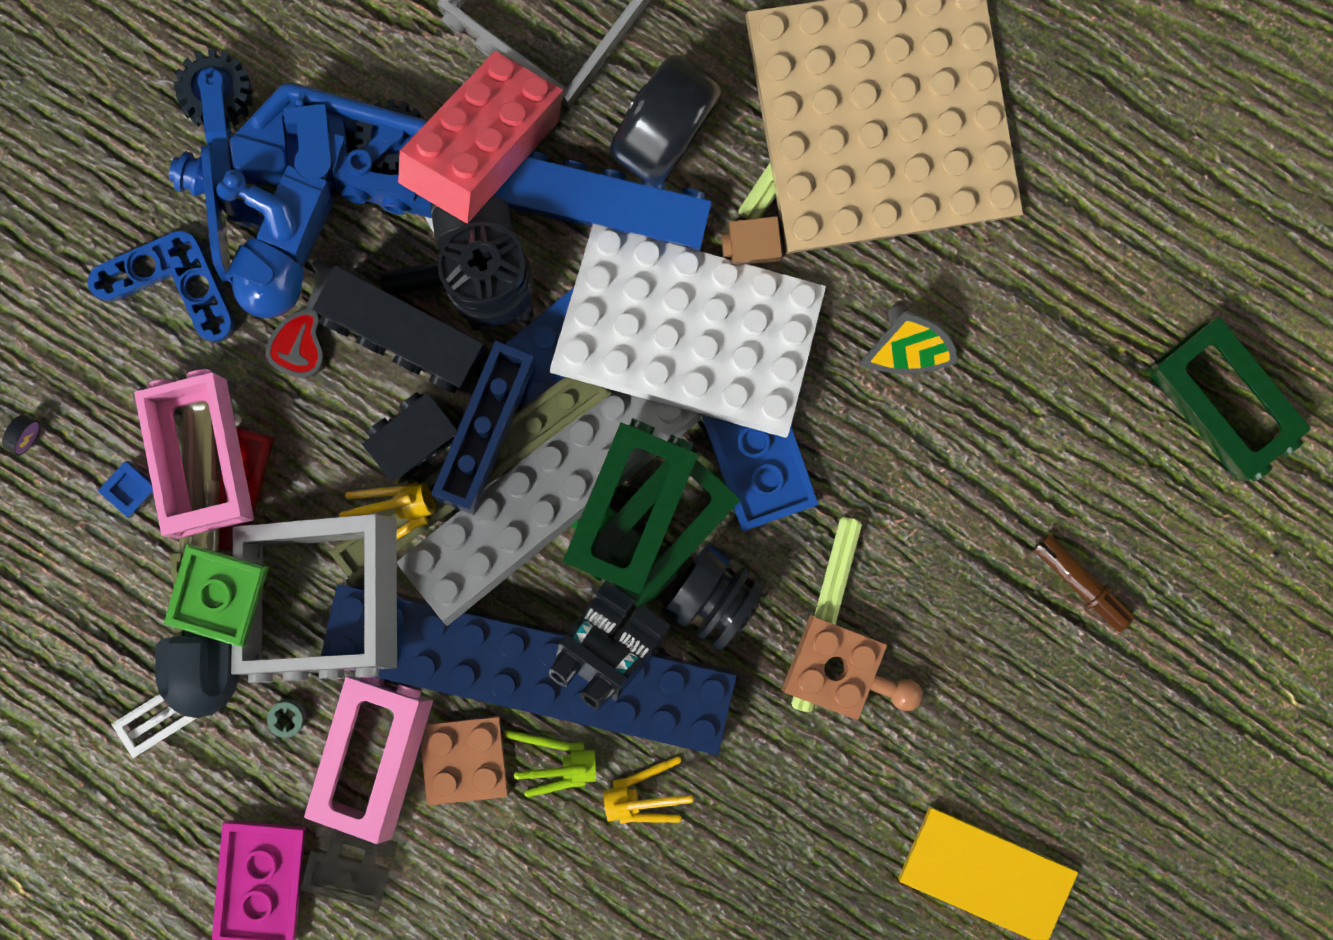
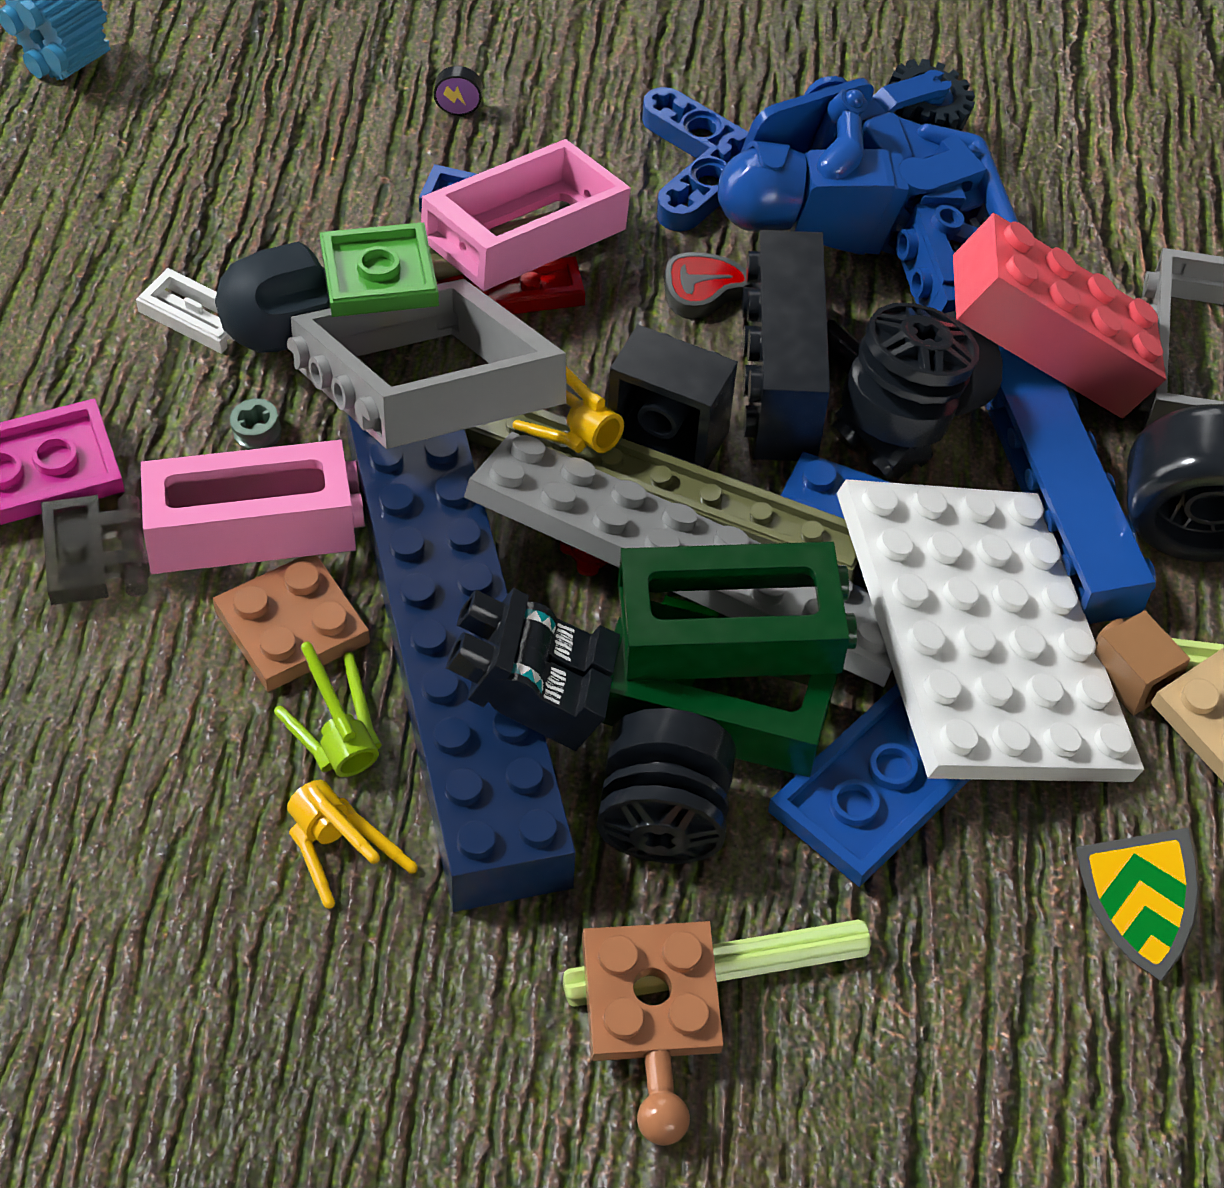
camera: 60 degrees right, 35 degrees down
(484, 428) = (728, 441): dark blue brick -> none

